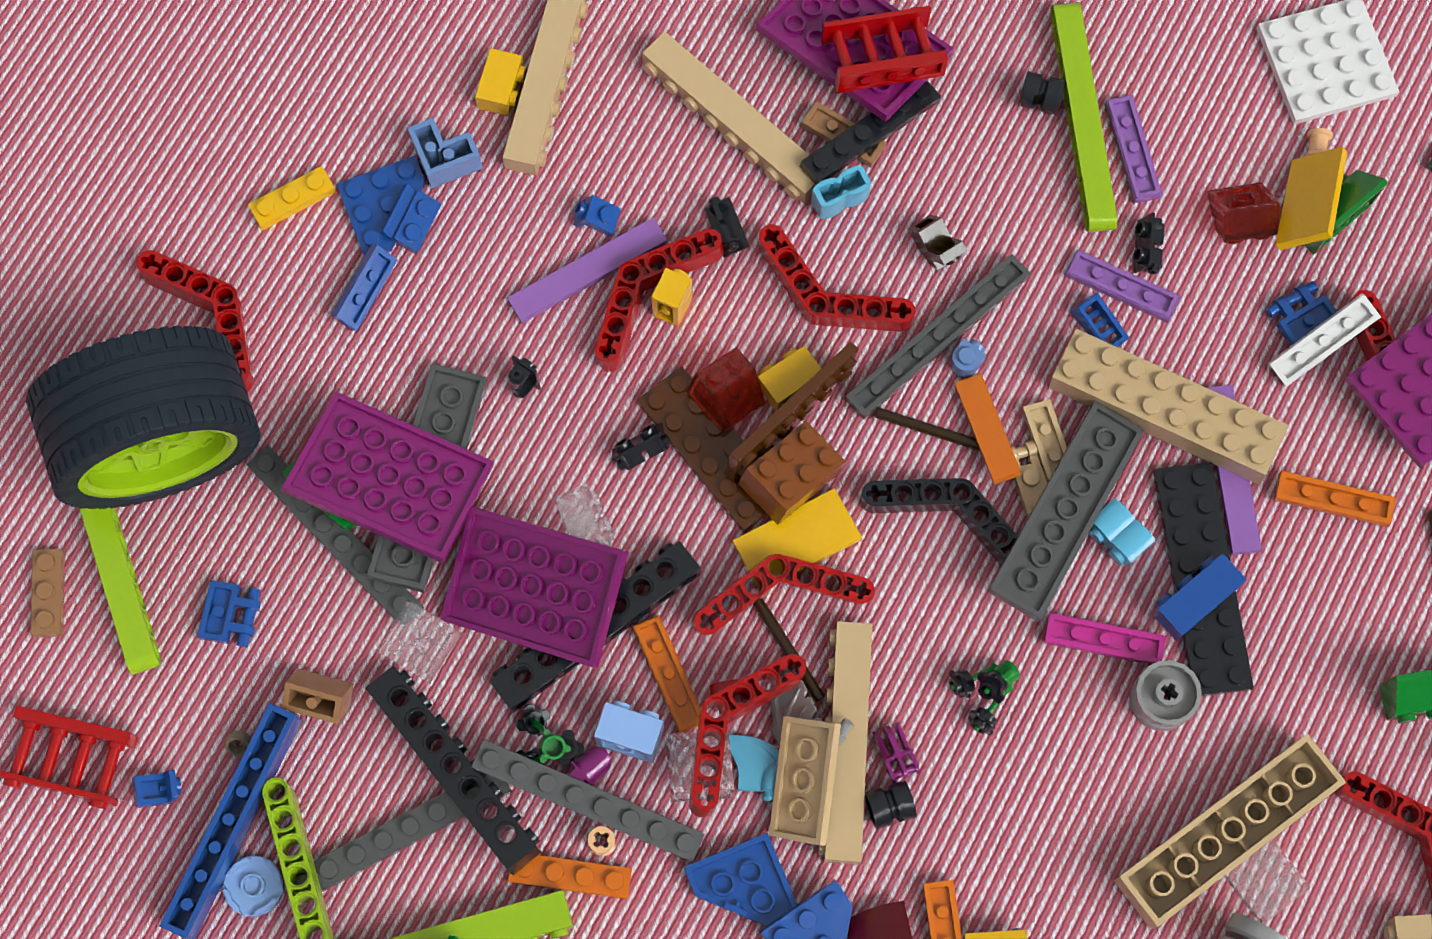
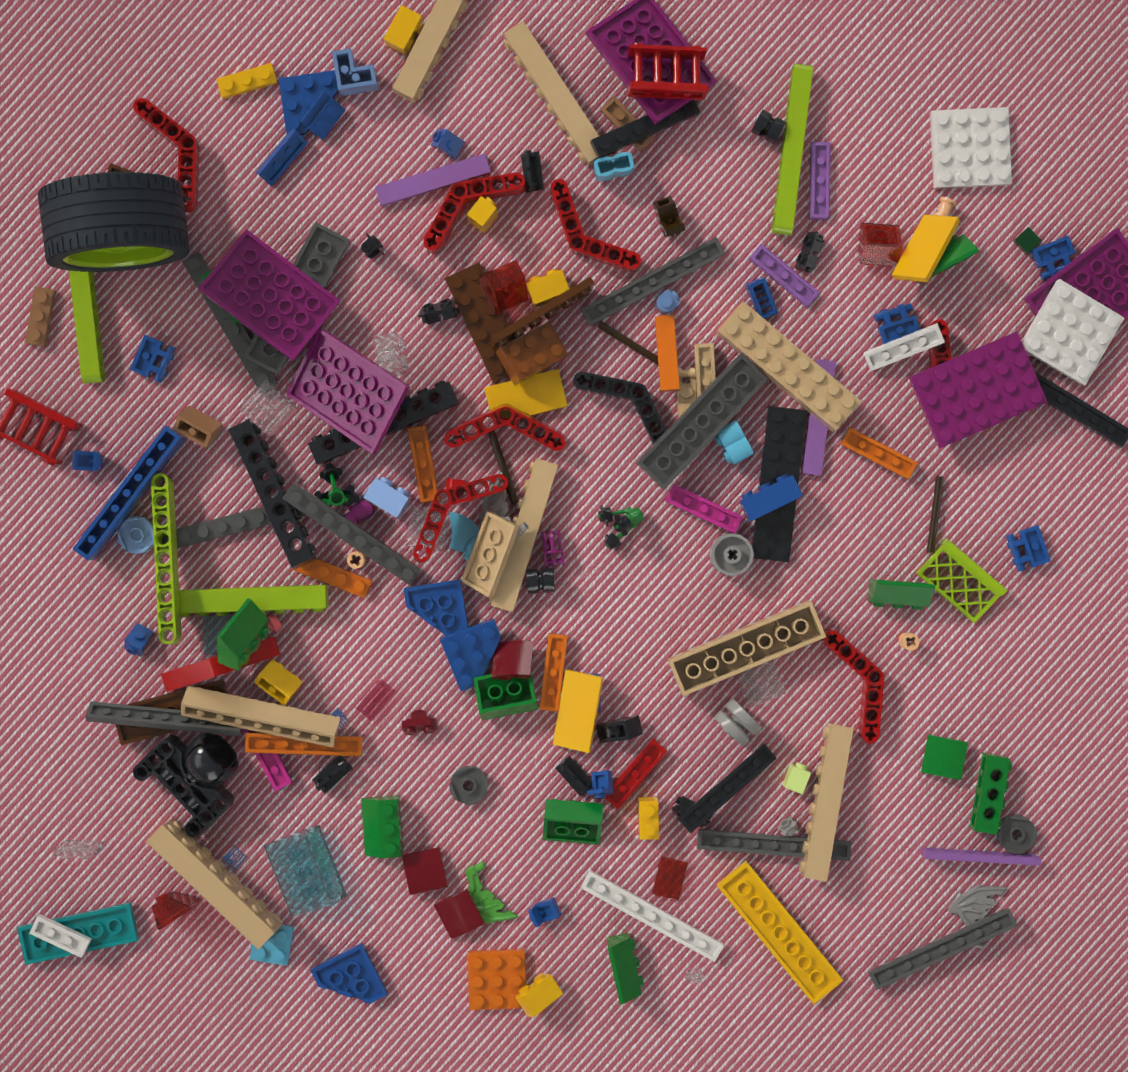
camera: 10 degrees right, 15 degrees up
(231, 742) = (139, 443): dark tan hinge -> none

